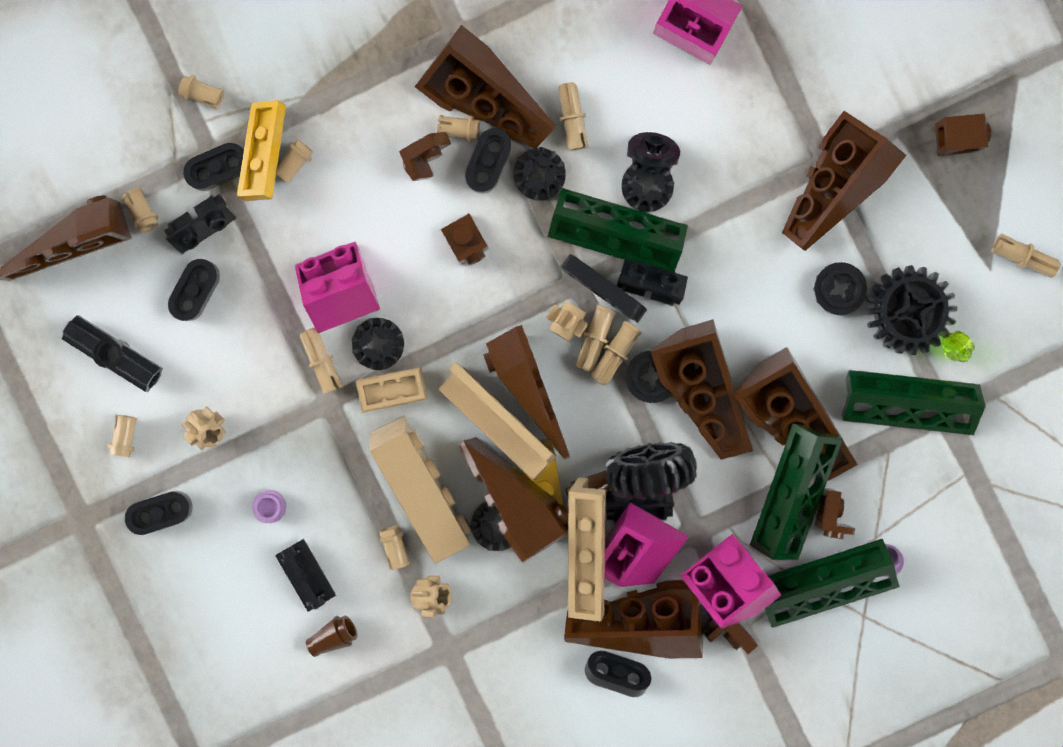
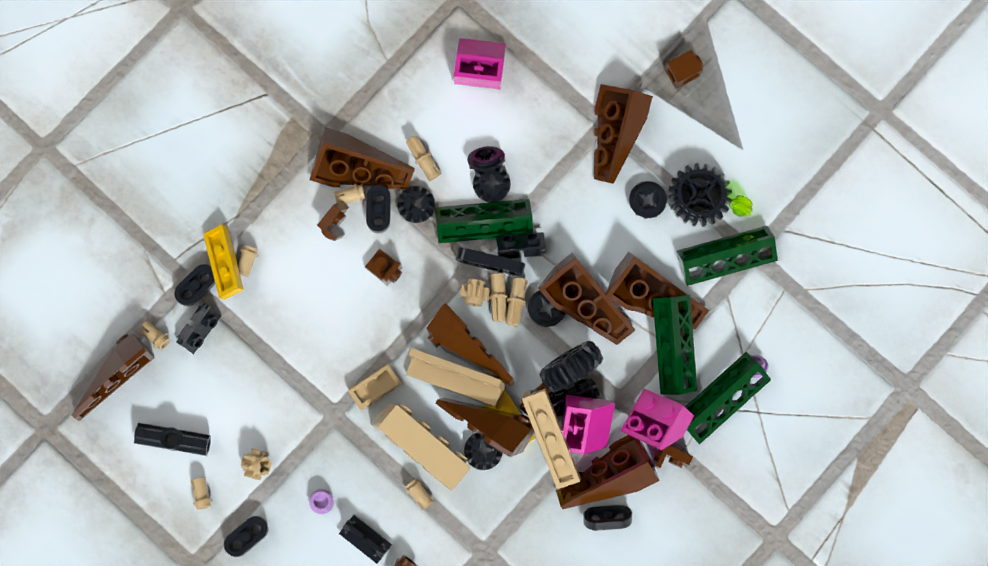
camera: 25 degrees left, 10 degrees down
(192, 288) = (212, 374): black plate -> none
(201, 92) = (165, 240): tan pin -> none
(320, 360) = (318, 387): tan axle -> none
(336, 287) = (309, 332): dark pink slope -> none
(391, 351) = (352, 372): black gear -> none
(430, 596) = (458, 516): tan gear -> none
(828, 511) = (703, 347): reddish brown bracket -> none
(1025, 255) = (760, 130): tan axle -> none

